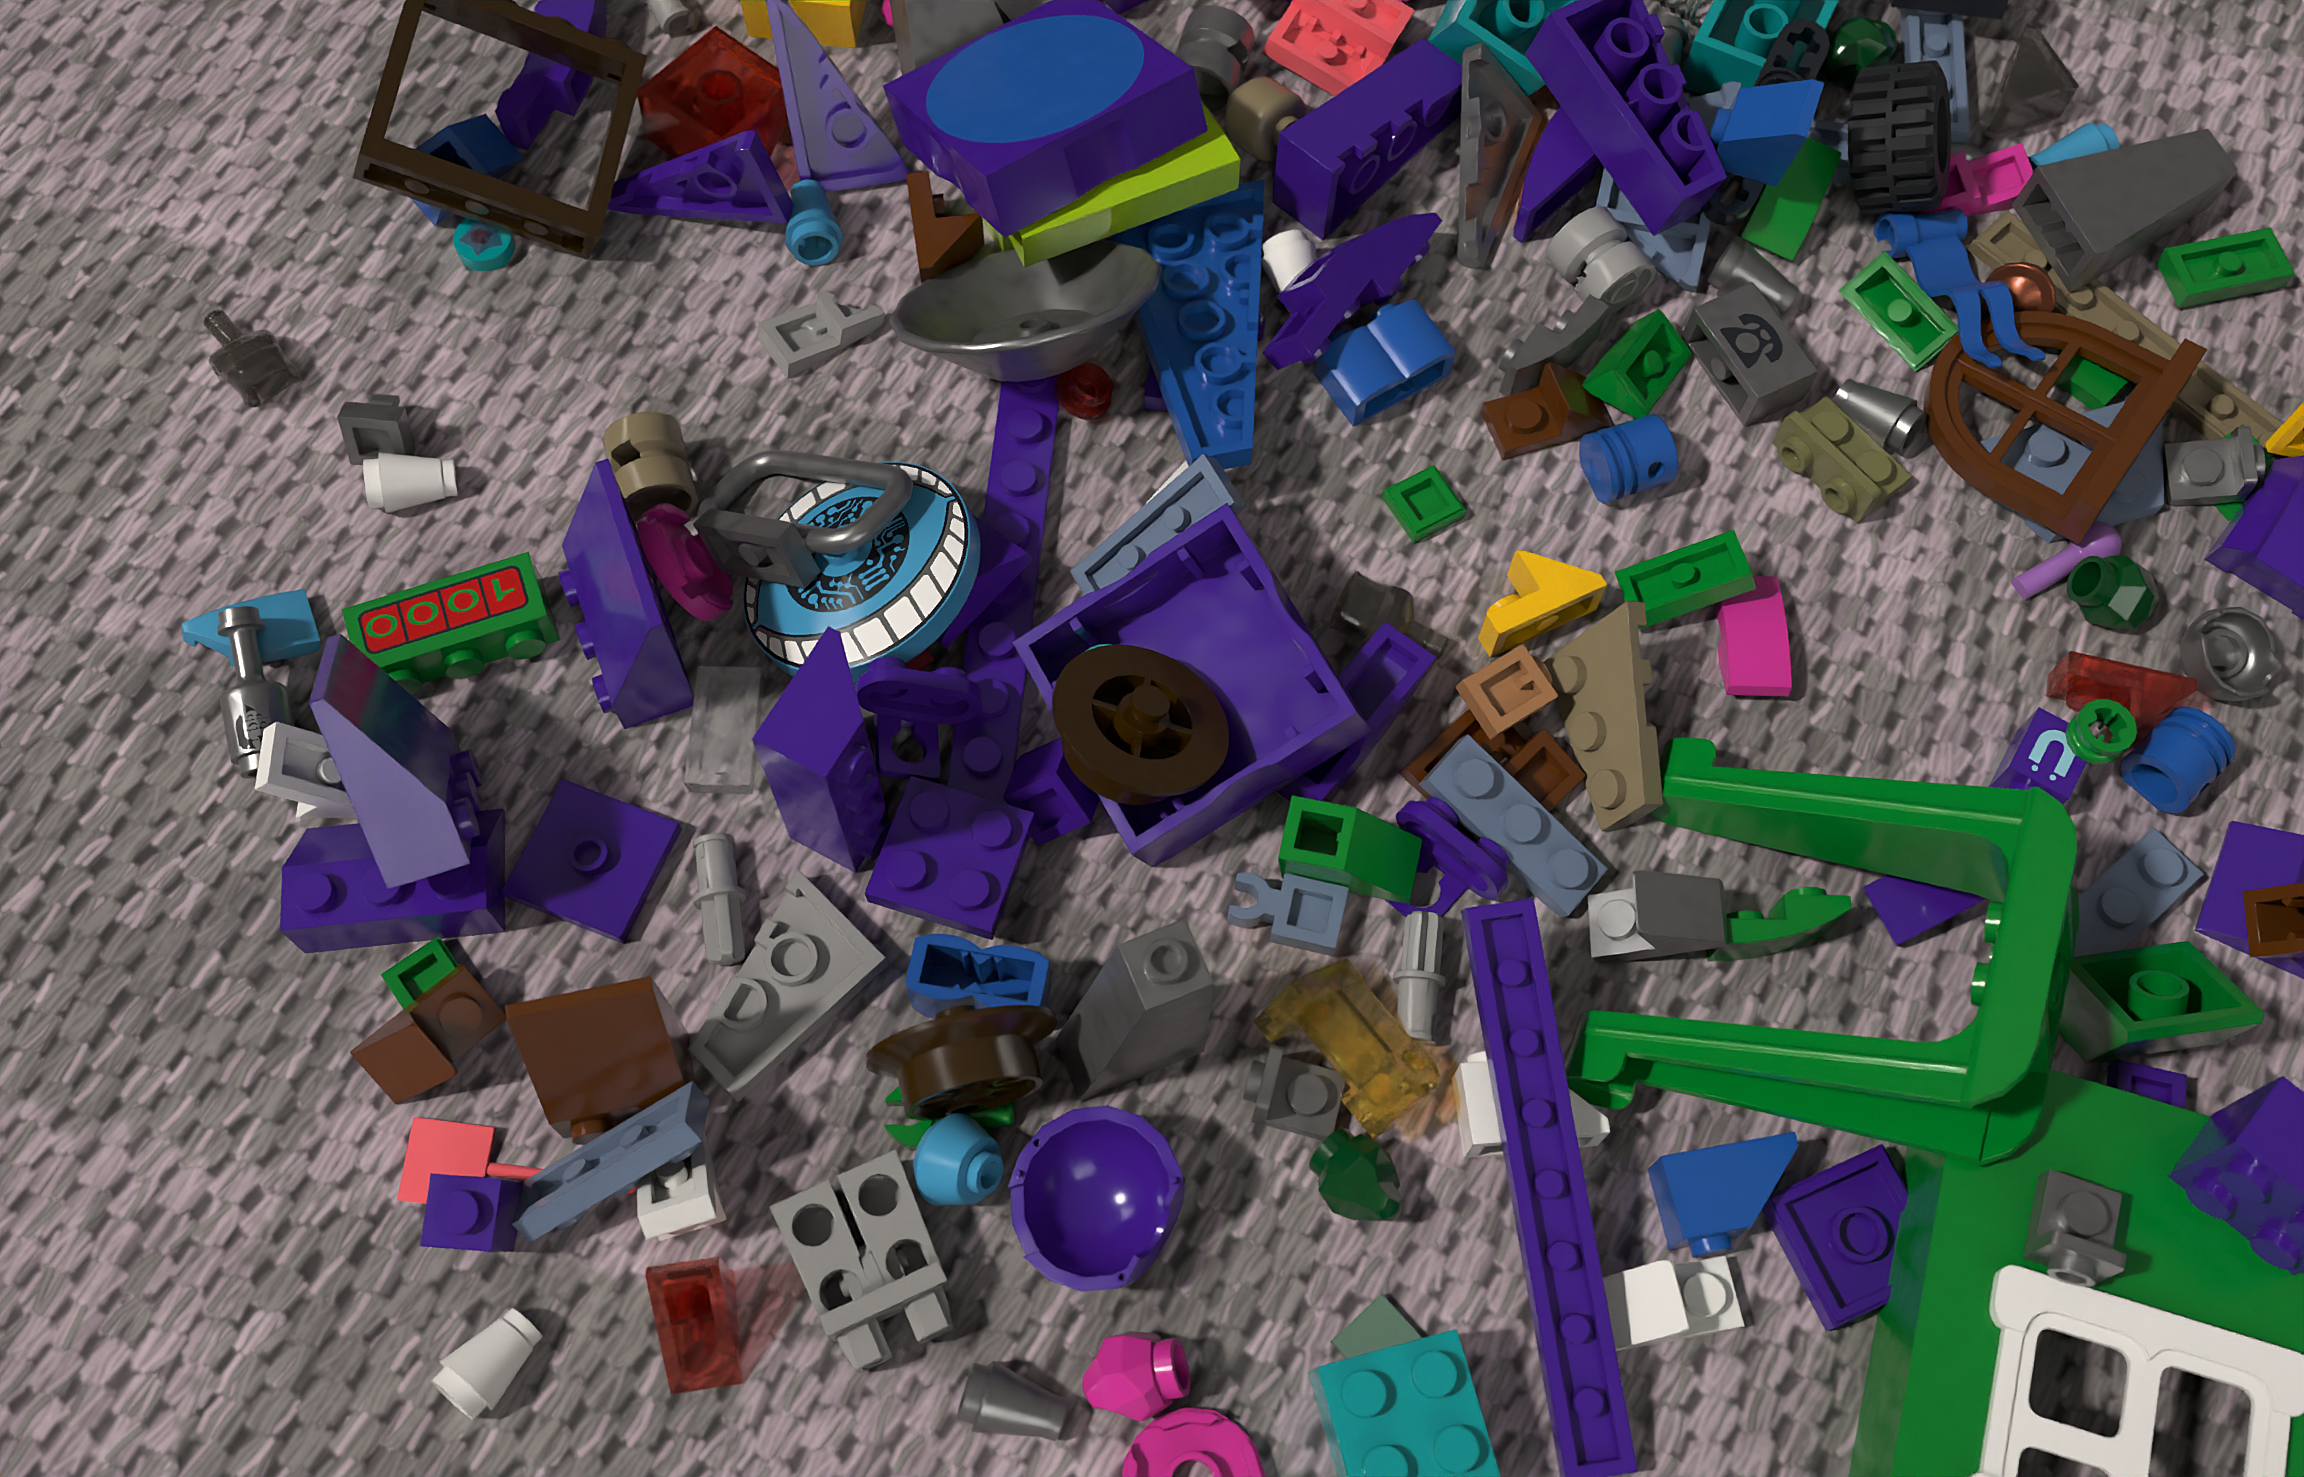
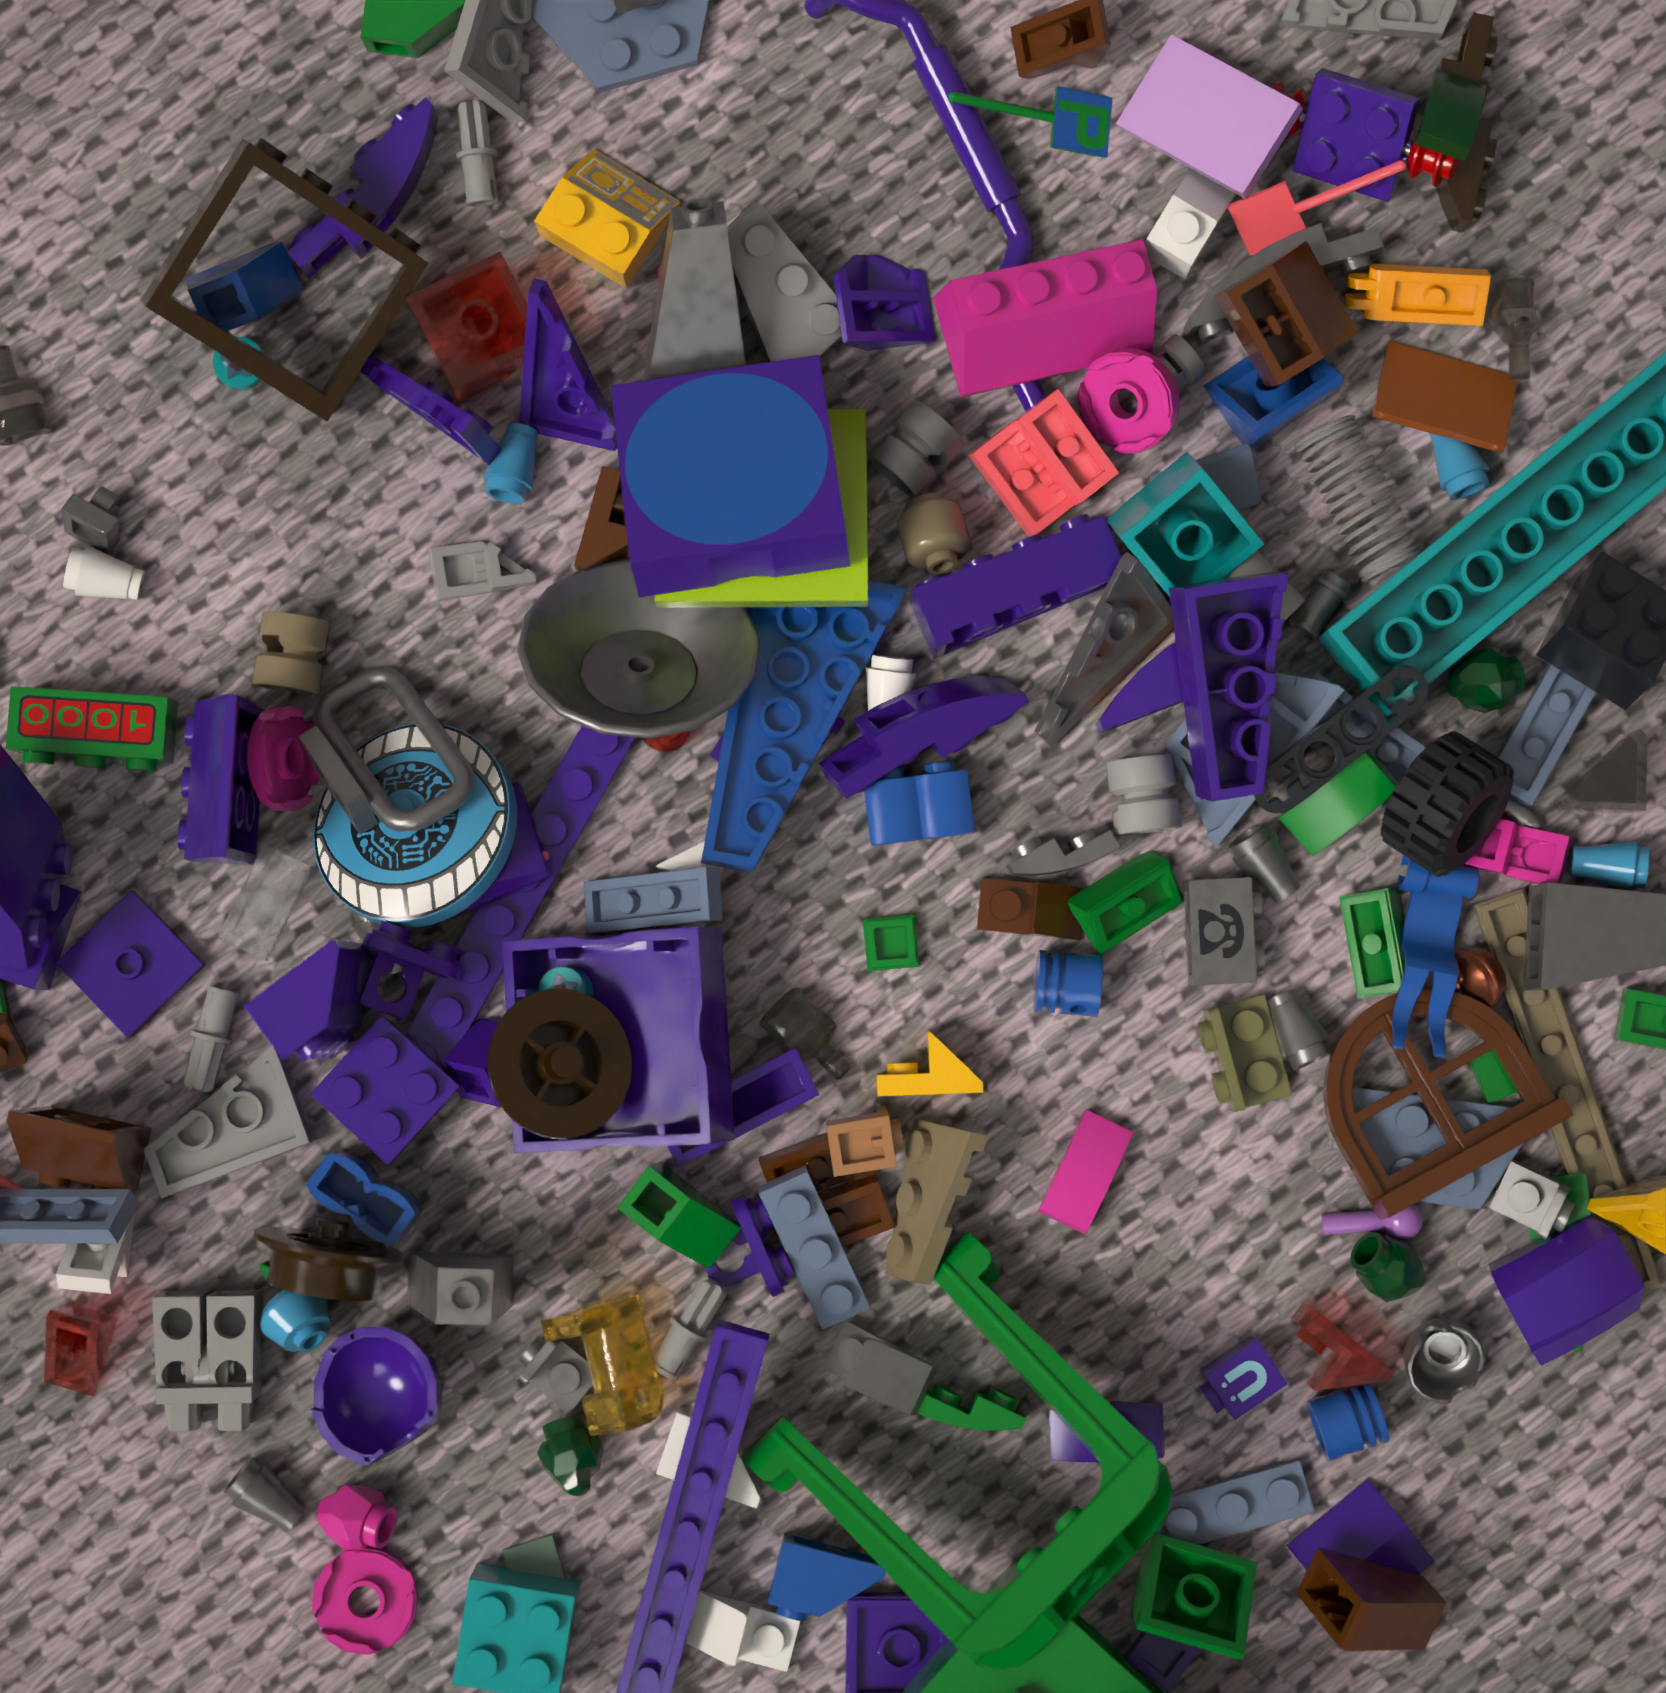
camera: 25 degrees right, 20 degrees up
(1303, 912) = (623, 1241): sand blue plate -> none
(1688, 578) = (1053, 1108): green plate -> none
(1765, 129) = (1310, 769): blue slope -> none
(2108, 714) = (1277, 1370): green bush -> none

